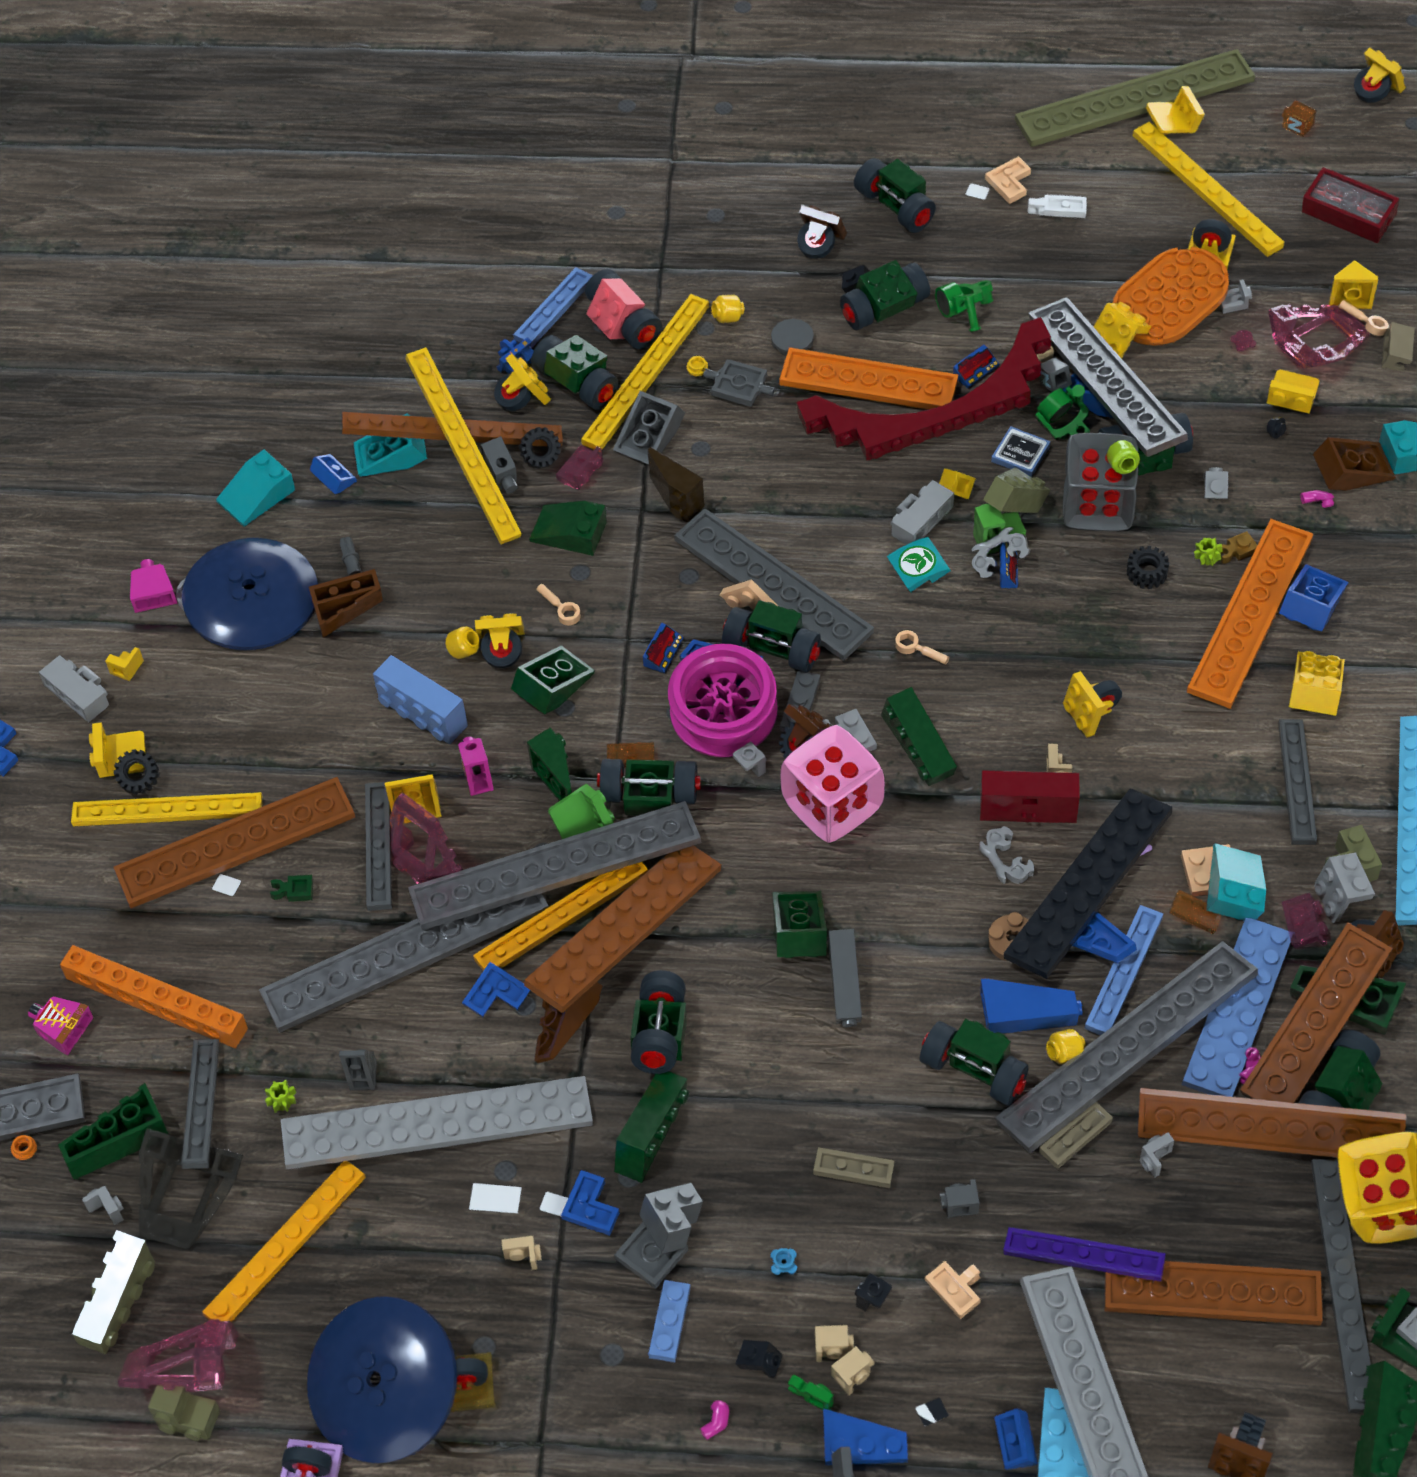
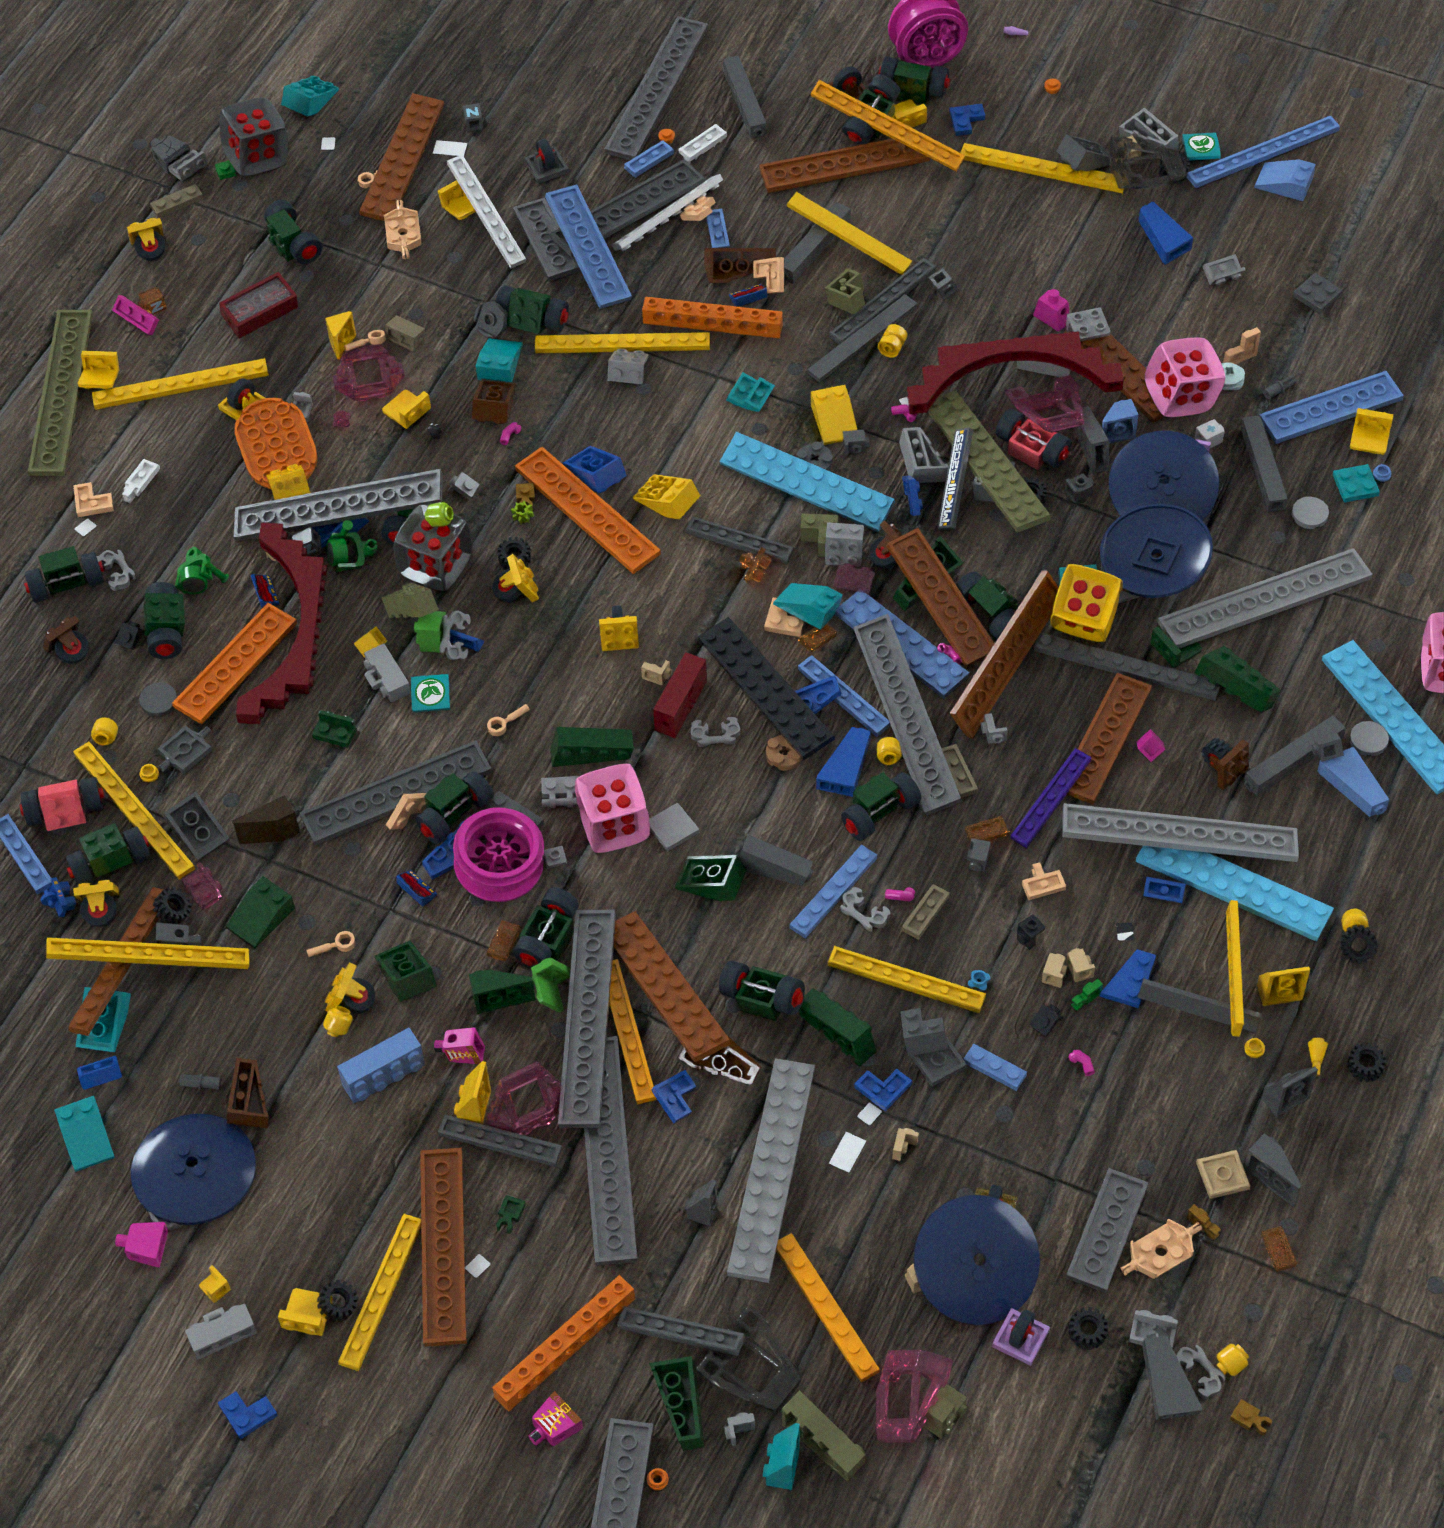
camera: 70 degrees left, 0 degrees up
(71, 1264) = (783, 1458): none -> teal slope
(280, 1096) = (698, 1267): lime gear -> none
(752, 1182) = (906, 979): none -> yellow tile
(806, 726) = (557, 817): reddish brown plate -> none
(823, 1120) = (850, 899): none -> light grey helmet
(827, 499) = (334, 729): none -> dark green bracket
(841, 1058) = (833, 891): none -> medium blue plate
(853, 860) = (673, 827): none -> light grey tile
(863, 1128) = (907, 895): none -> dark pink arm
(941, 223) = (119, 581): none -> light grey helmet
(1003, 1197) = (987, 829): none -> clear orange plate
(1021, 451) = (361, 592): tile -> none
(1107, 582) = (514, 582): none -> yellow plate
(1228, 1350) = (1150, 745): none -> dark pink panel
(1255, 808) = (748, 561): none -> clear orange hips
(1272, 113) = (135, 315): none -> dark pink plate

